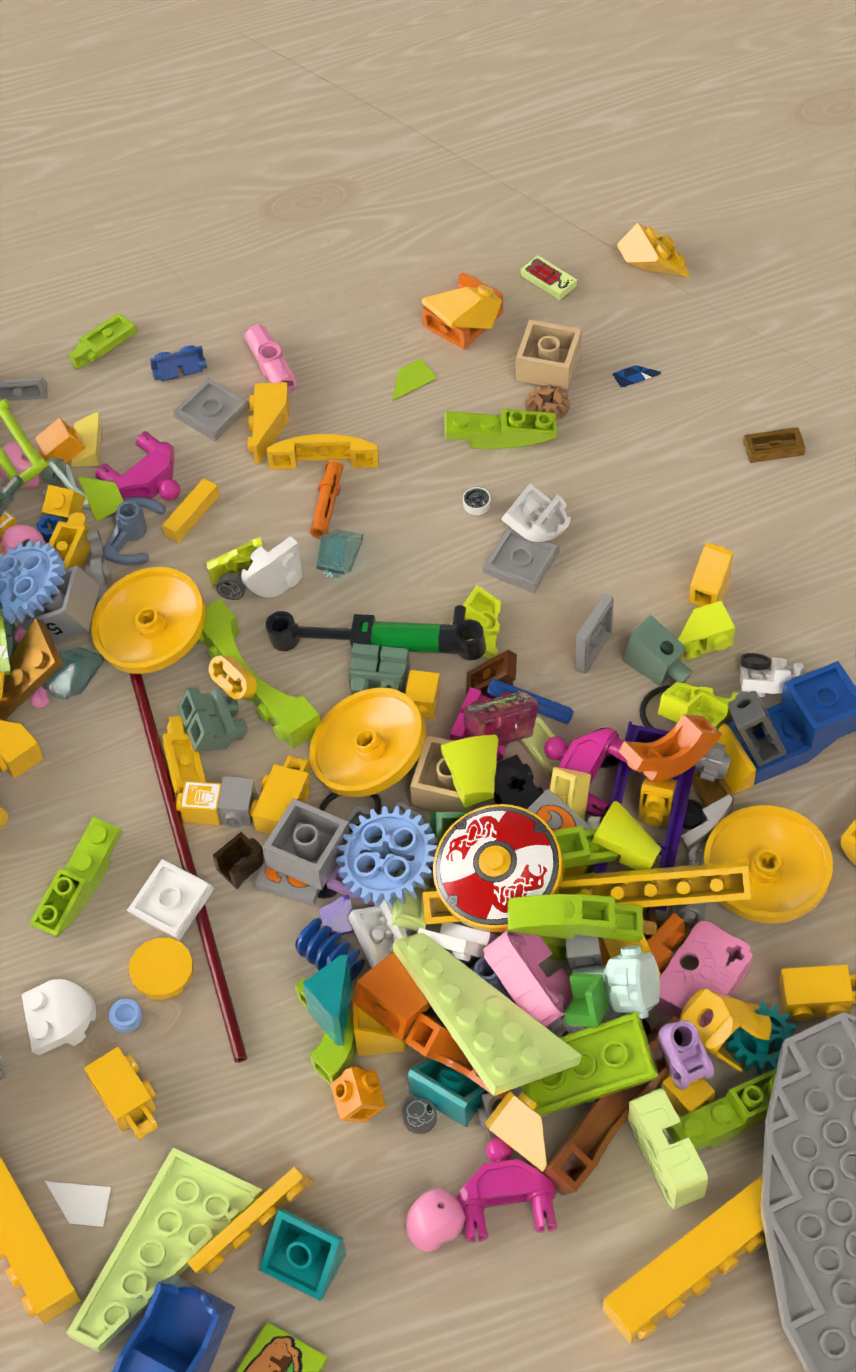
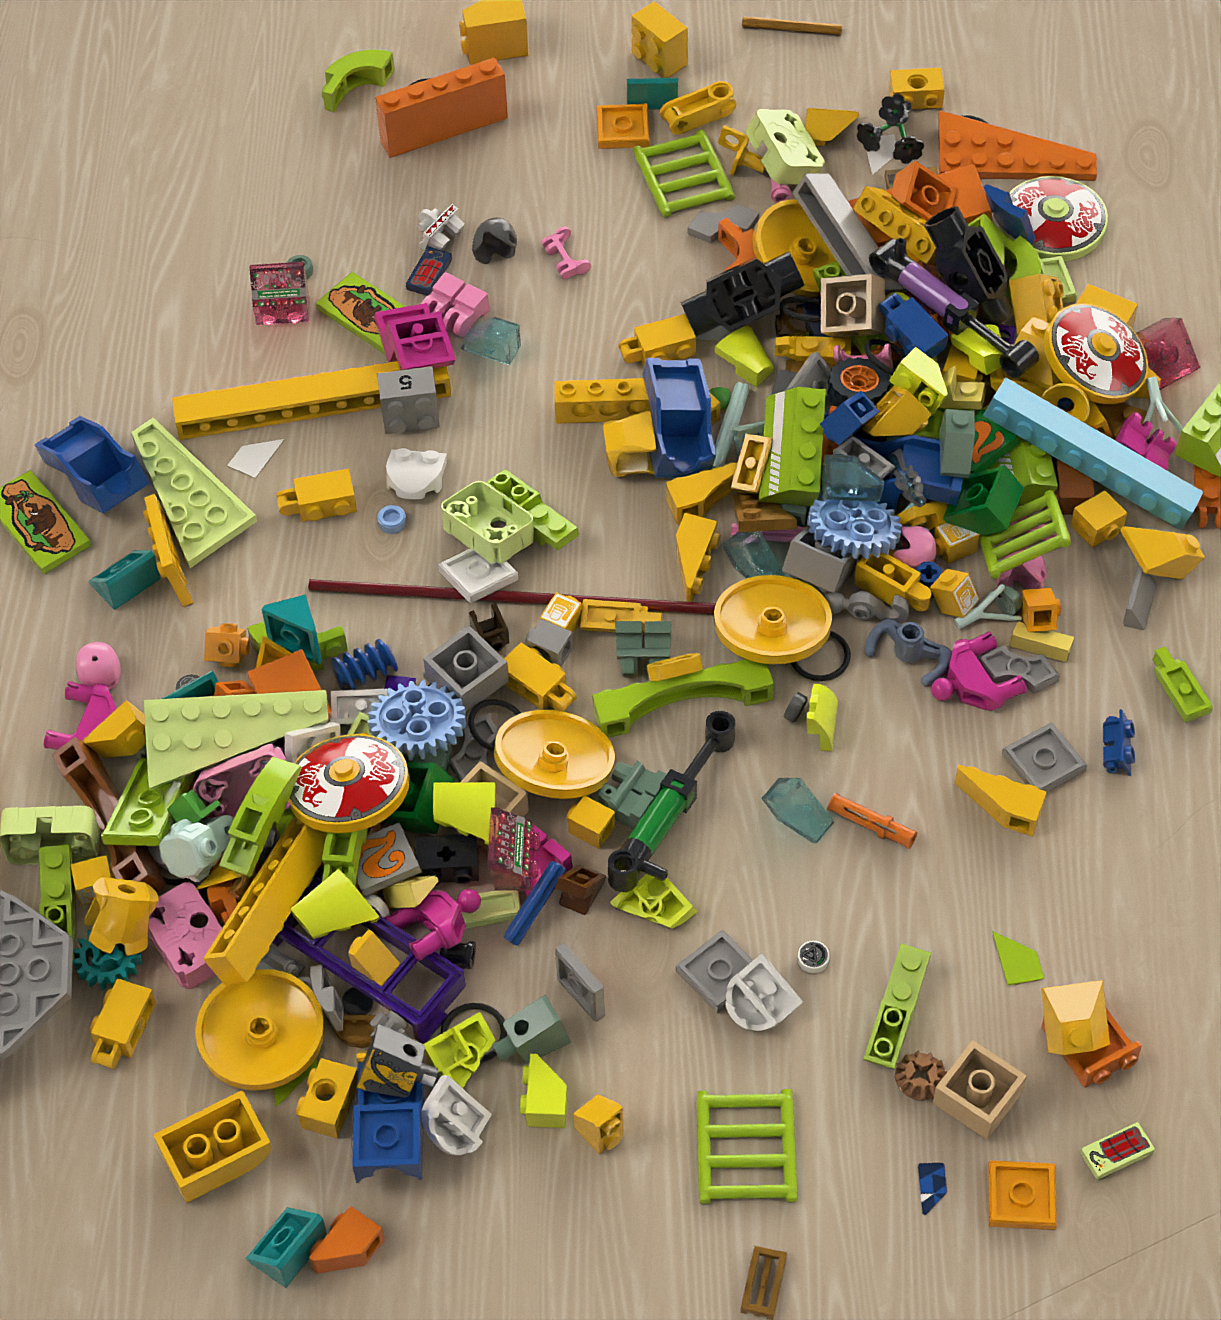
camera: 110 degrees right, 0 degrees up
(80, 722) = (694, 545): none -> yellow slope
(102, 496) = (954, 629): lime sticker -> none
(123, 446) = (1005, 665): none -> light grey tile
(129, 892) = (469, 519): none -> yellowish green axle
(161, 968) = (419, 552): yellow tile -> none
(190, 510) = (910, 702): yellow piece -> none
(269, 356) = (1105, 825): bright pink piece -> none
(274, 570) = (788, 740): white slope -> none
(322, 447) = (924, 862): yellow slope -> none
(614, 320) = (1022, 1195): none -> light orange tile
(652, 252) = (1103, 1275): yellow slope -> none
(669, 519) = (707, 1161): none -> lime bar
(675, 751) = (399, 973): orange arch -> none
(686, 1056) = (111, 863): lavender piece -> none
(755, 661) = (490, 1128): black piece -> none
(808, 776) = (329, 1115): none -> yellow brick

